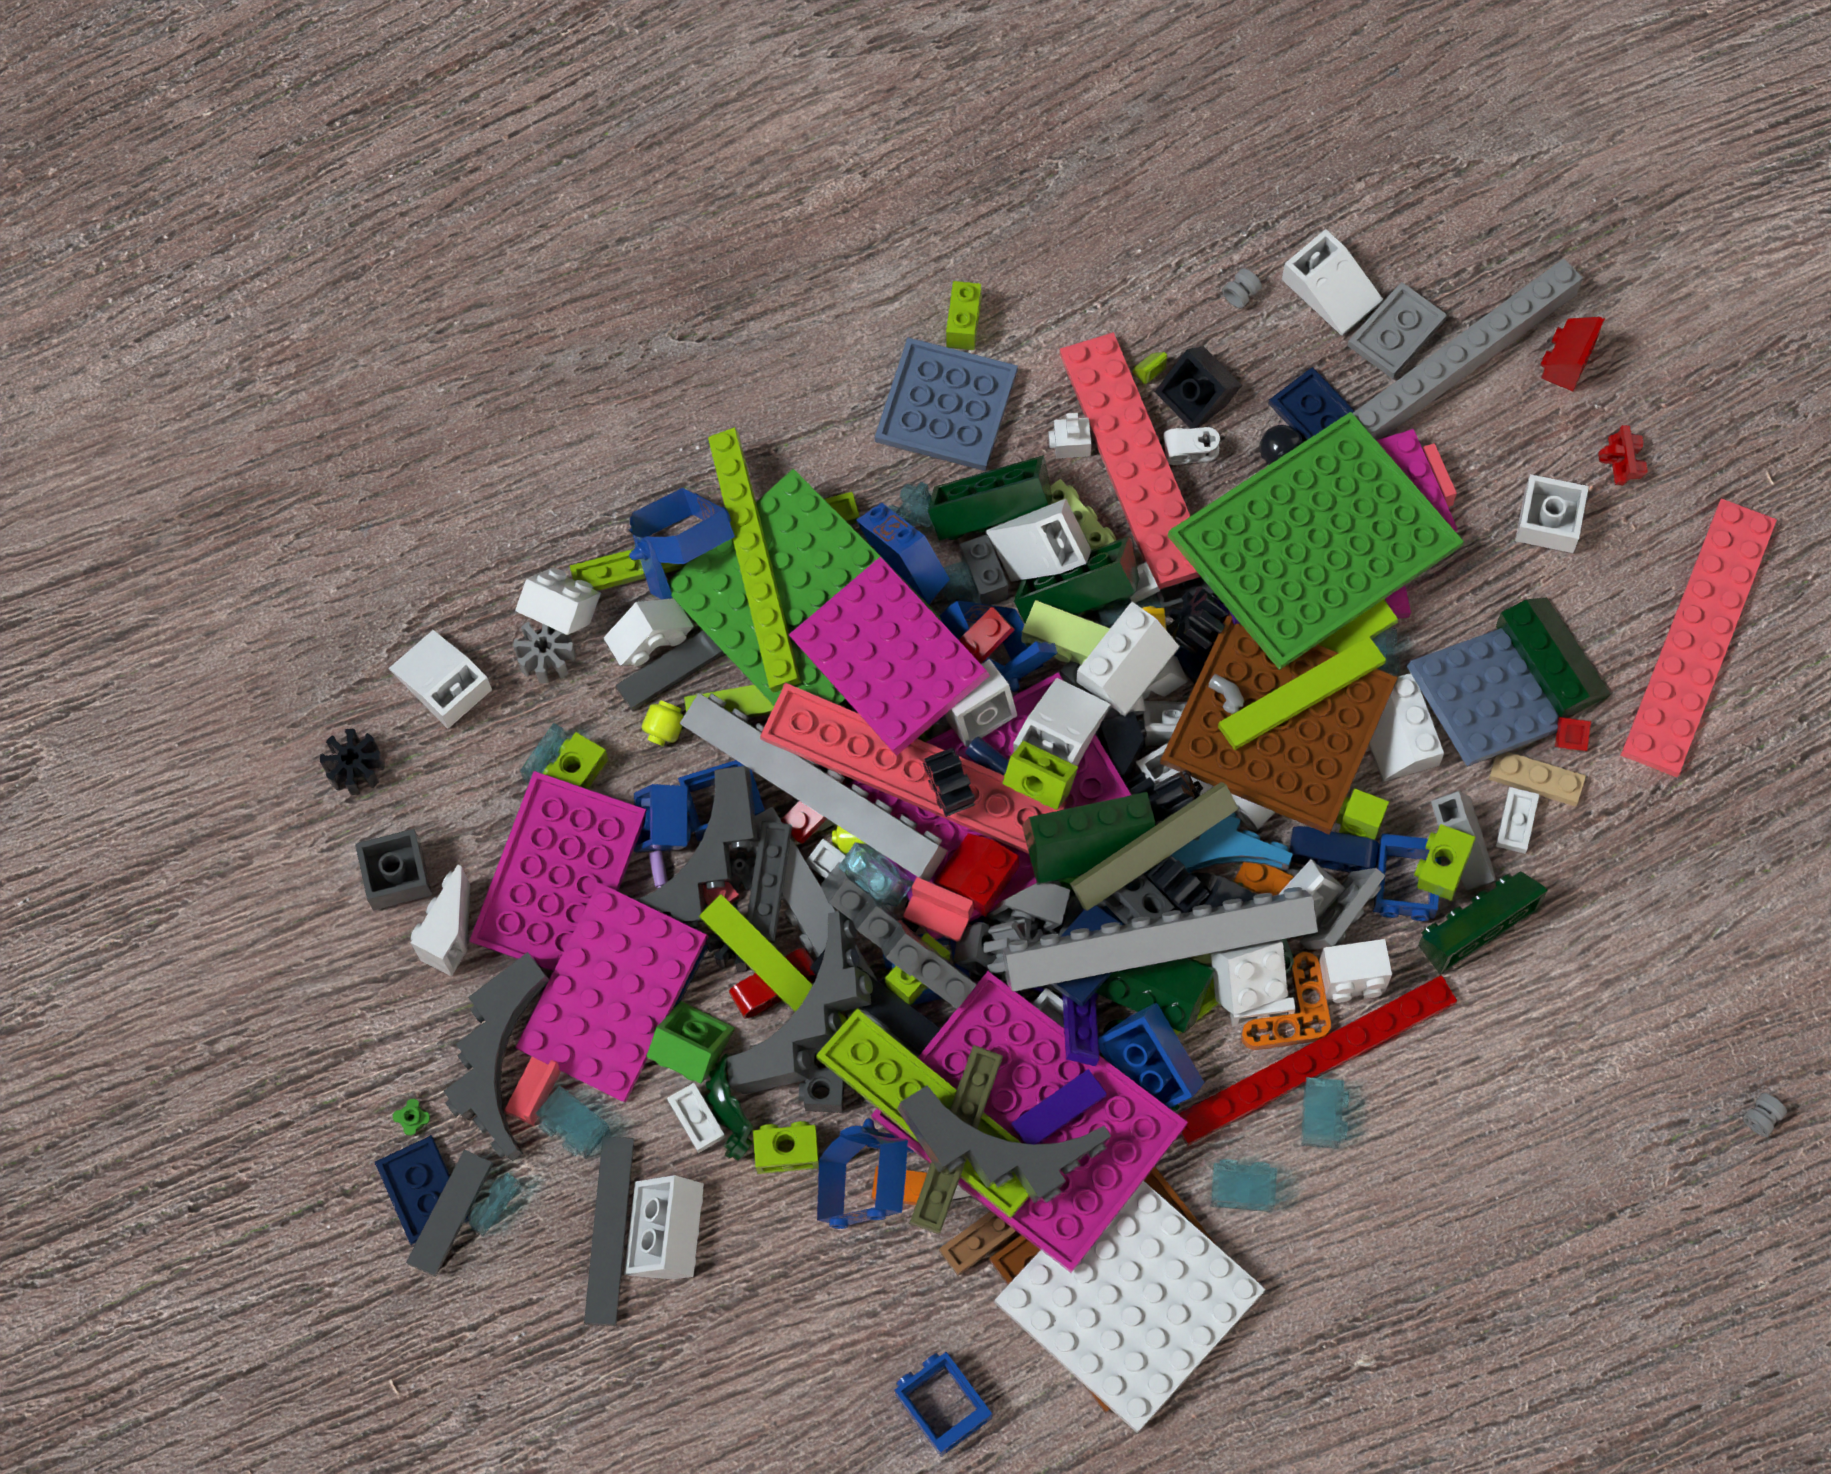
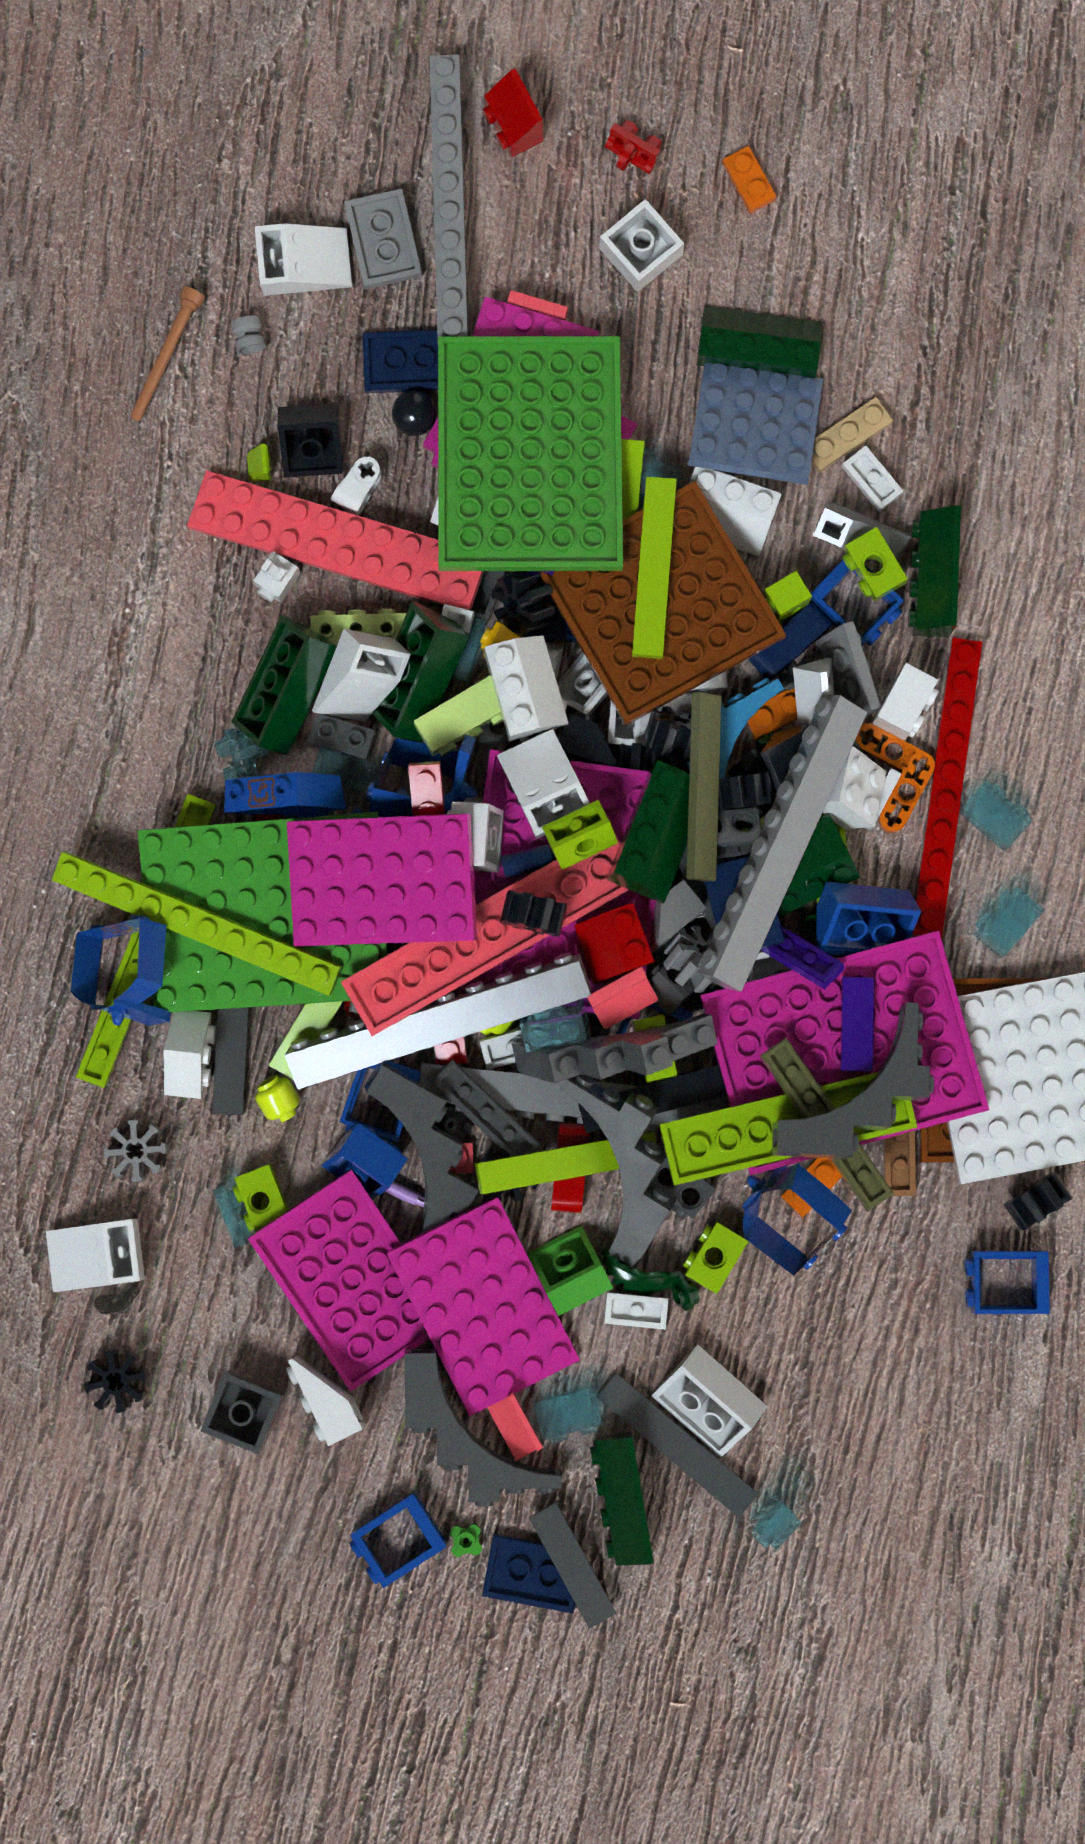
camera: 55 degrees left, 15 degrees up
(401, 1076) = (424, 1522): none -> blue window
(413, 721) = (118, 1302): none -> clear smoke arm
(500, 1195) = (584, 1511): clear light blue plate -> none
(534, 1215) = (623, 1500): none -> dark green slope
(558, 601) = (106, 1111): white brick -> none
(599, 1348) = (774, 1523): none -> clear light blue brick
(946, 404) = (165, 656): sand blue plate -> none
(963, 315) = (96, 582): lime brick -> none
(1028, 1374) = (1038, 1201): none -> black gear
(1230, 691) = (613, 624): light grey arm -> none
(1232, 232) = (190, 301): none -> nougat piece
(1573, 734) = (835, 378): red plate -> none
(1675, 559) = (749, 179): none -> orange plate
(1698, 638) = (827, 214): coral plate -> none

